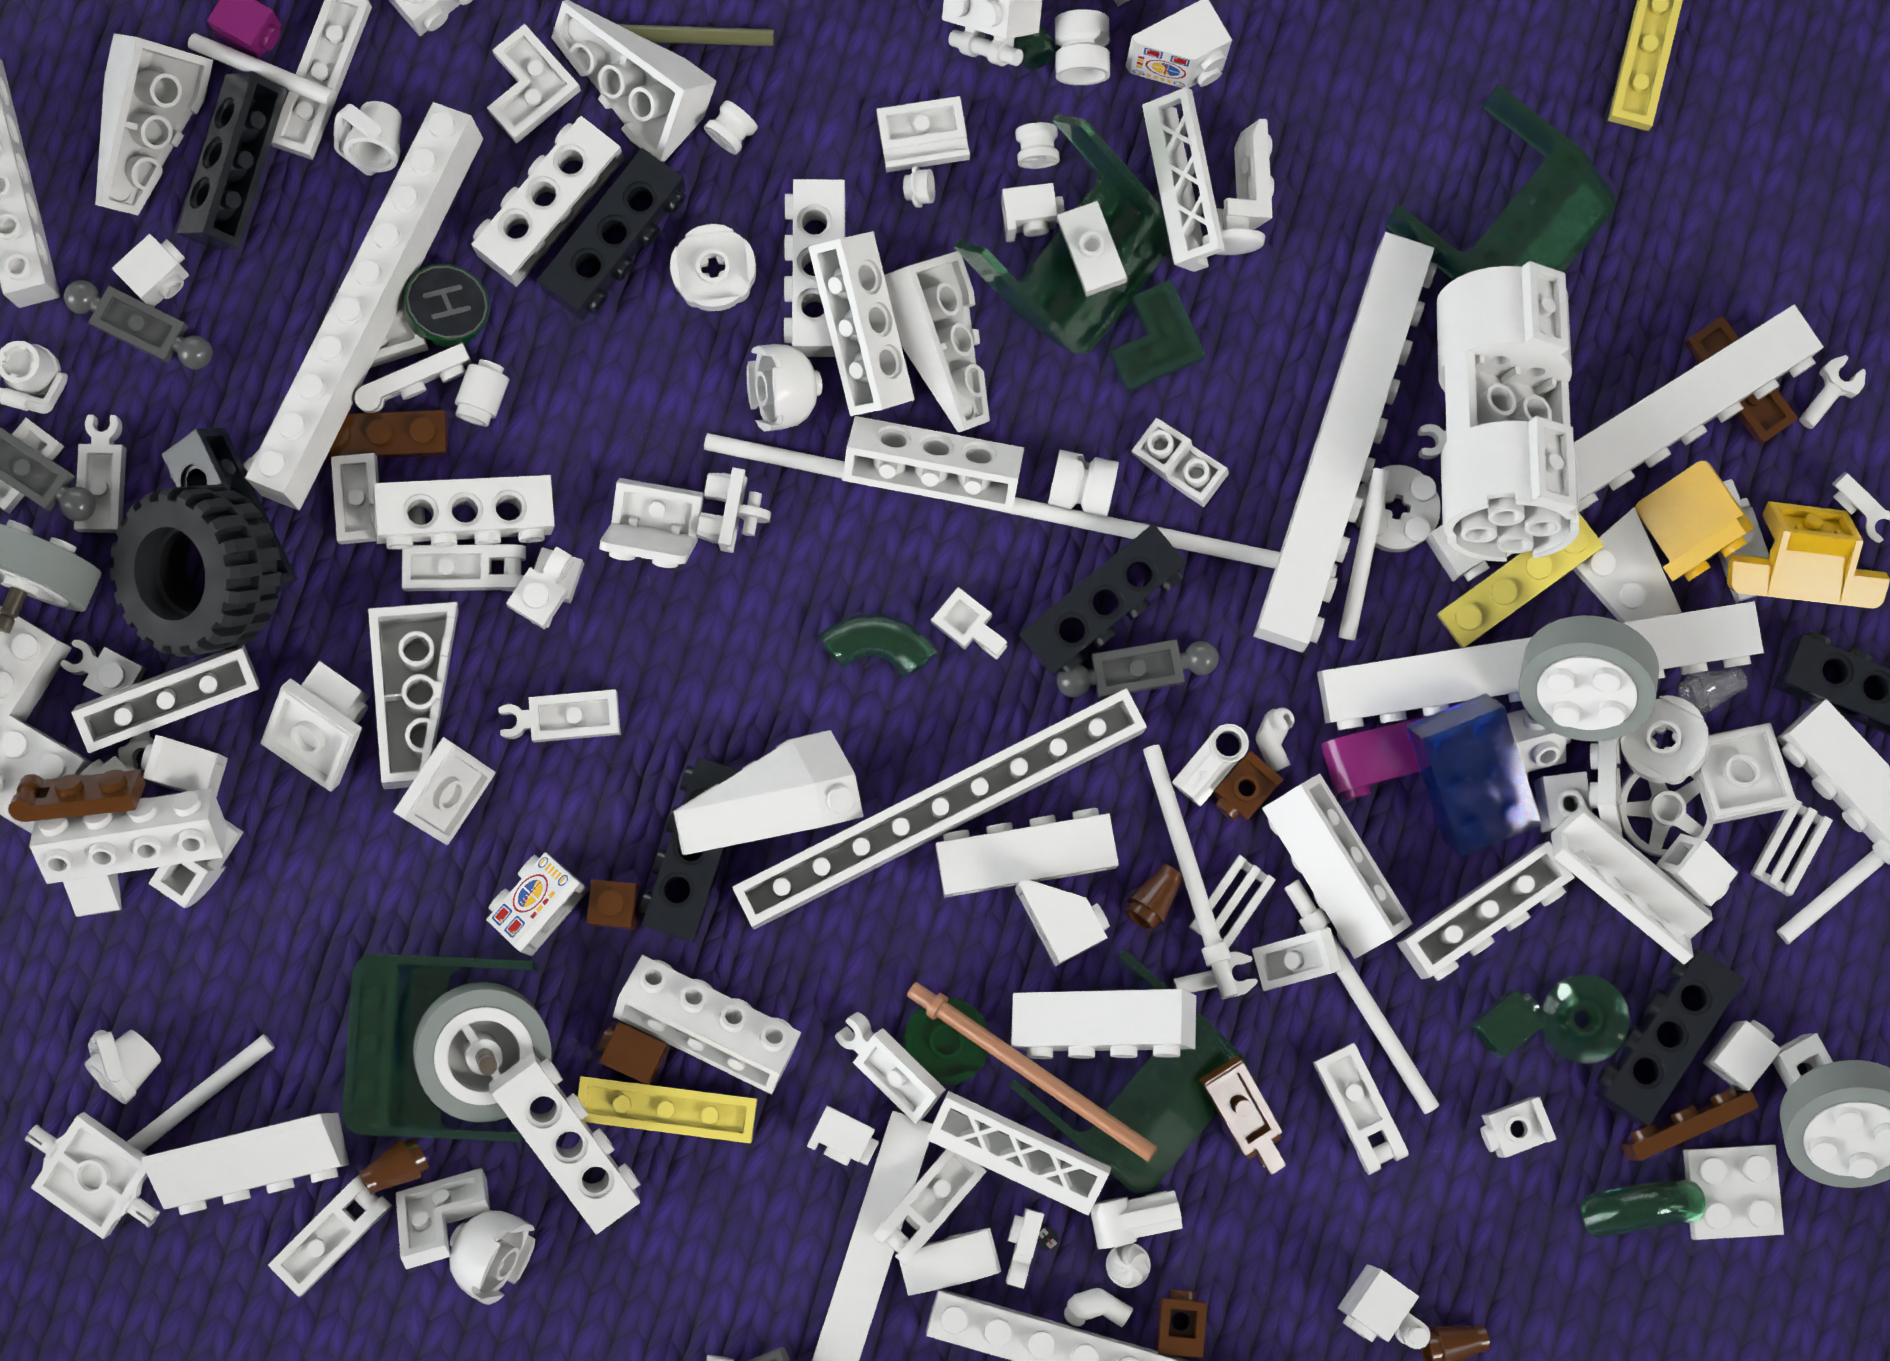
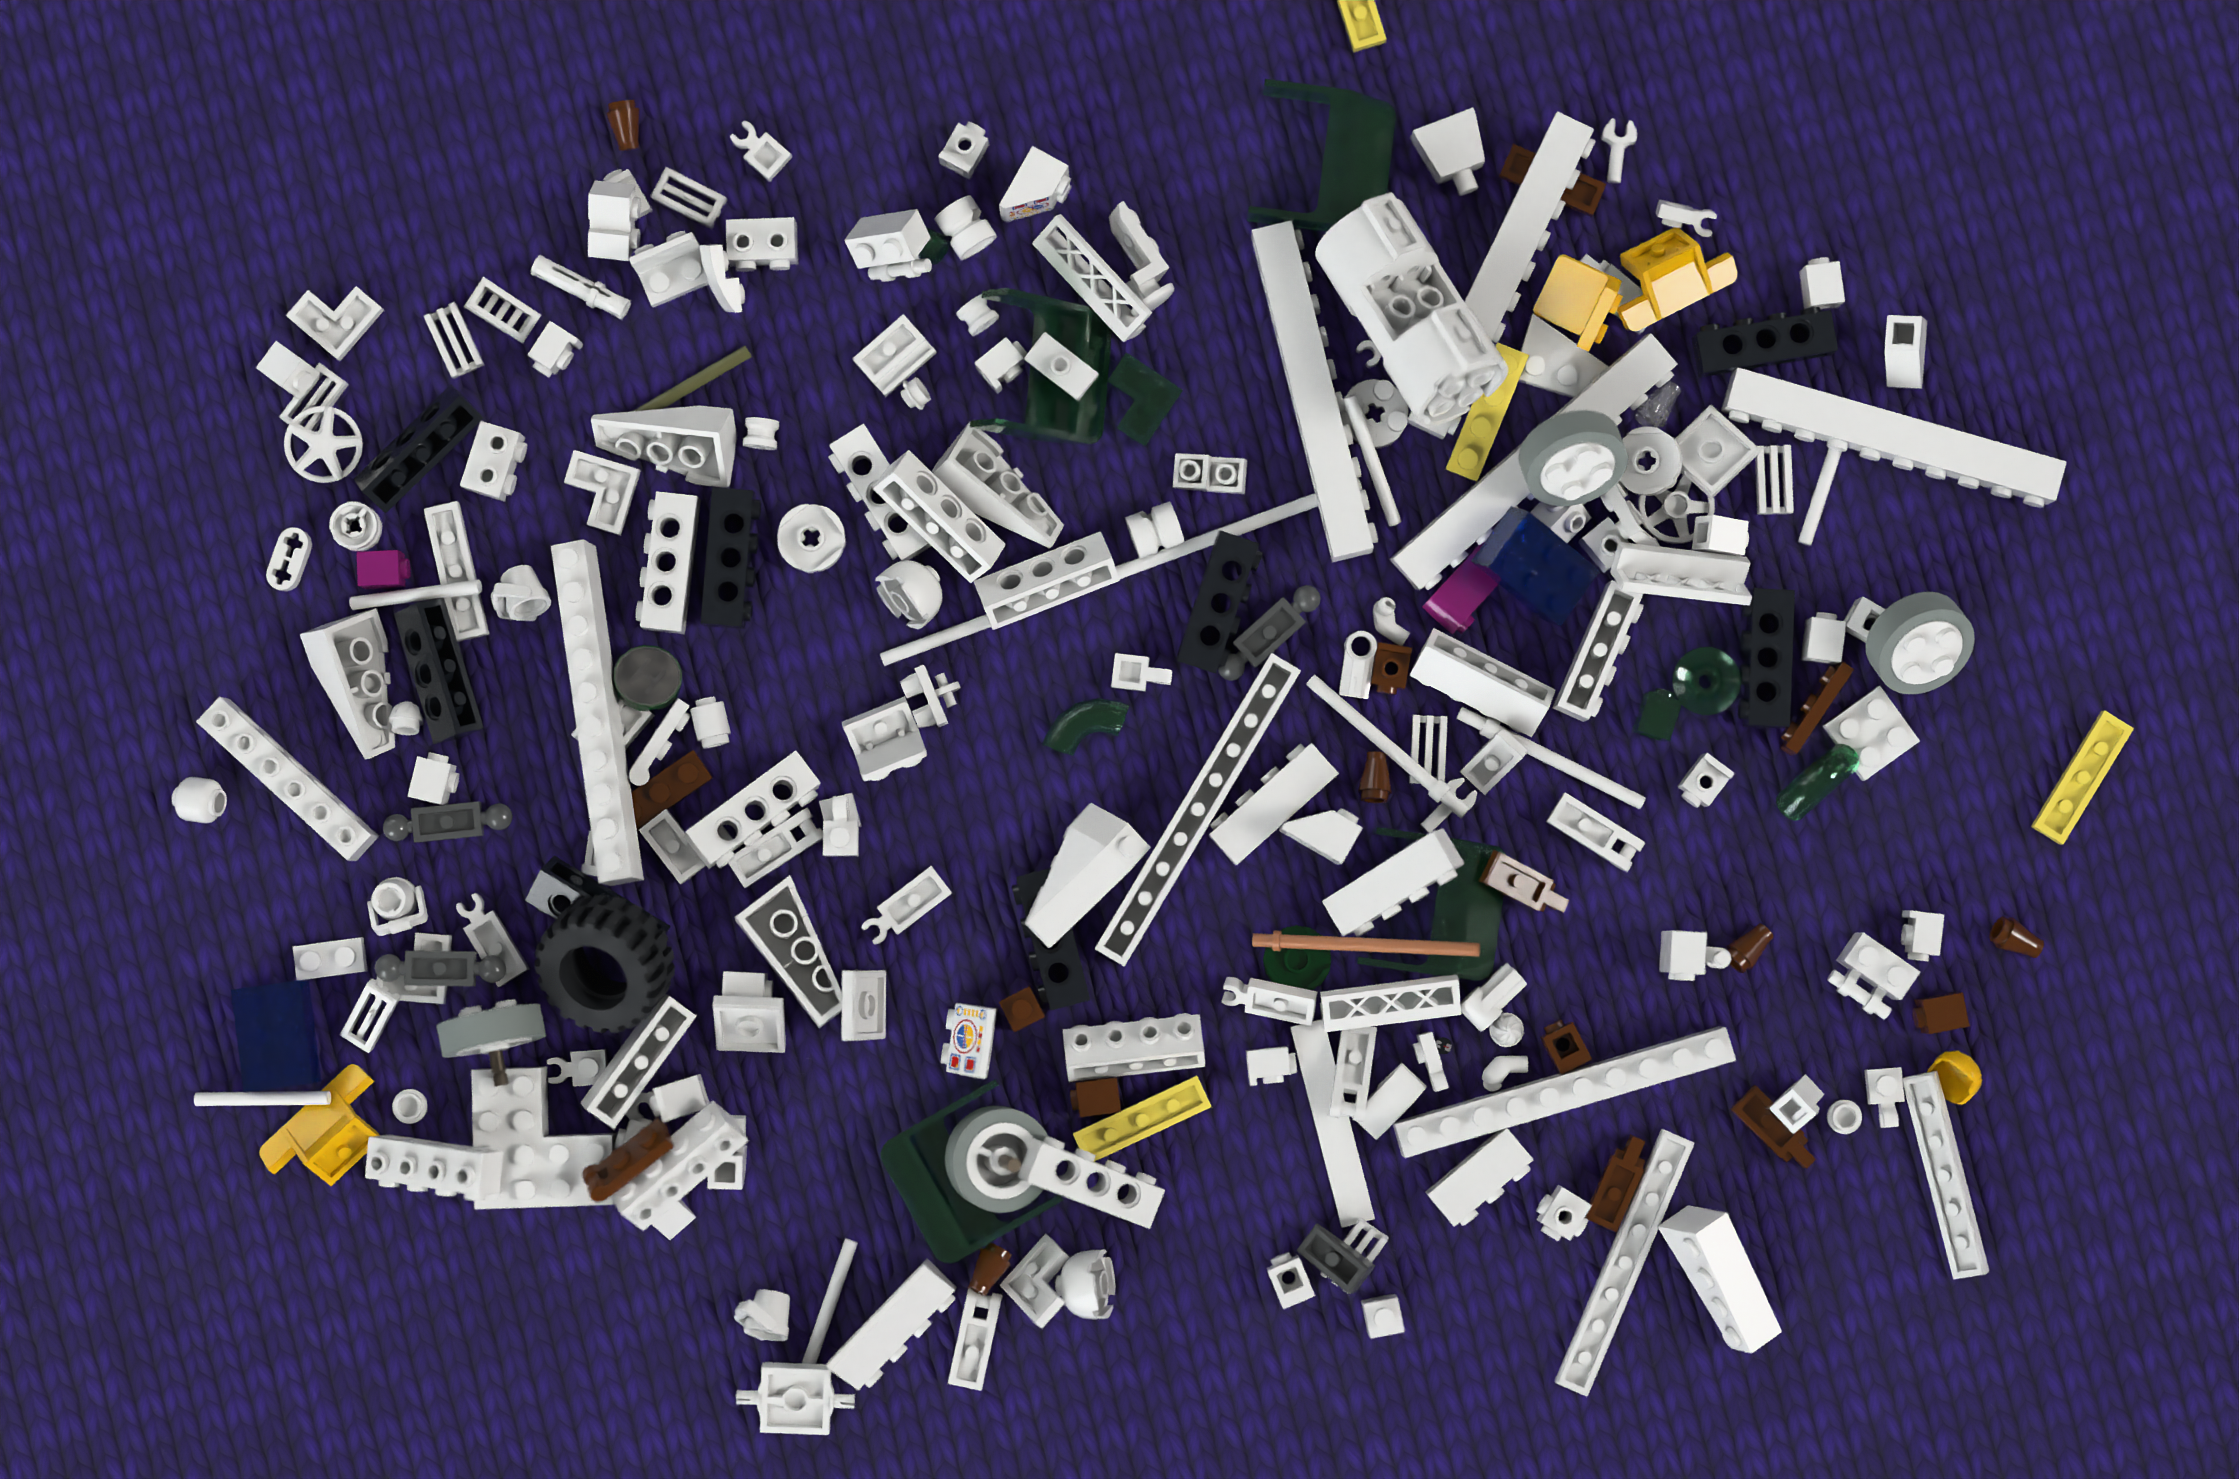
camera: 30 degrees left, 5 degrees up
(167, 191) = (406, 719): none -> white plate
(1652, 281) = (1452, 149): none -> white torso

